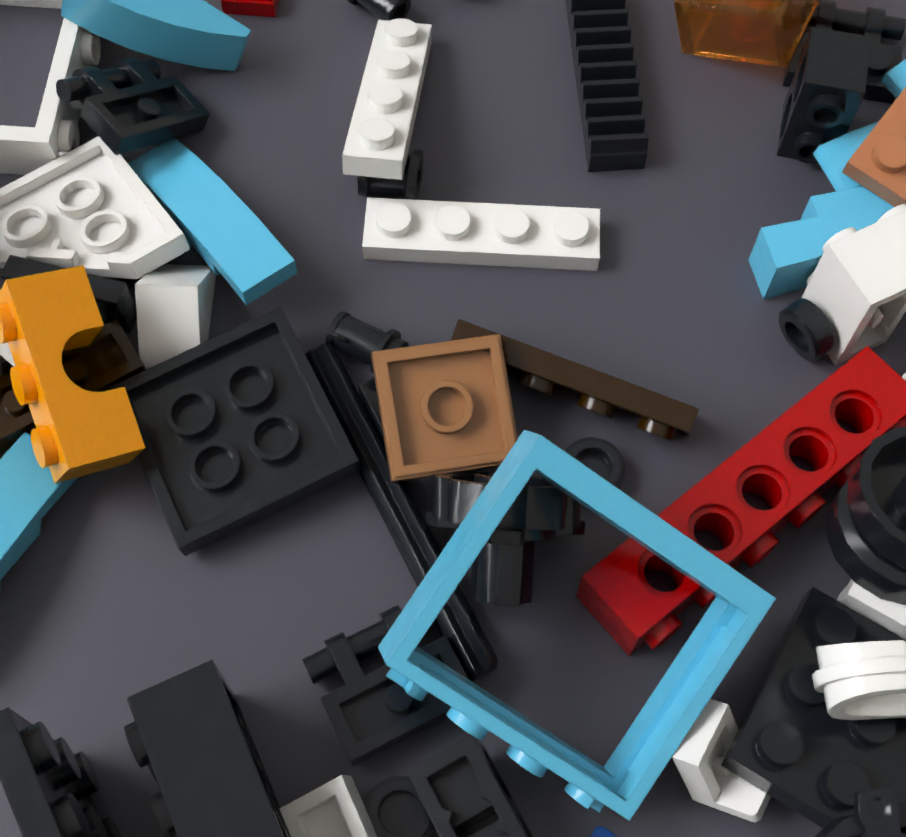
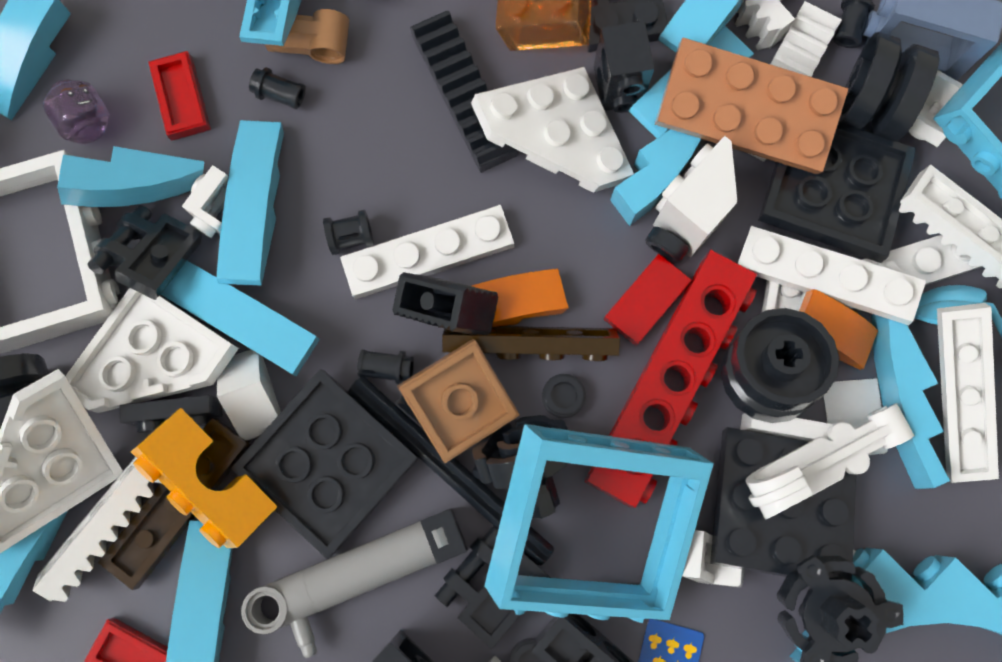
camera: 20 degrees left, 15 degrees up
(204, 582) = (353, 575): none -> light grey piece
(236, 80) = (207, 201): none -> white bracket
(279, 101) = (249, 203): none -> medium azure slope
(388, 100) = (324, 177): white plate -> none
(480, 282) = (445, 304): none -> black brick
(573, 318) = (527, 296): none -> orange slope
(708, 142) = (557, 126): none -> white plate
(753, 391) = (647, 299): none -> red tile

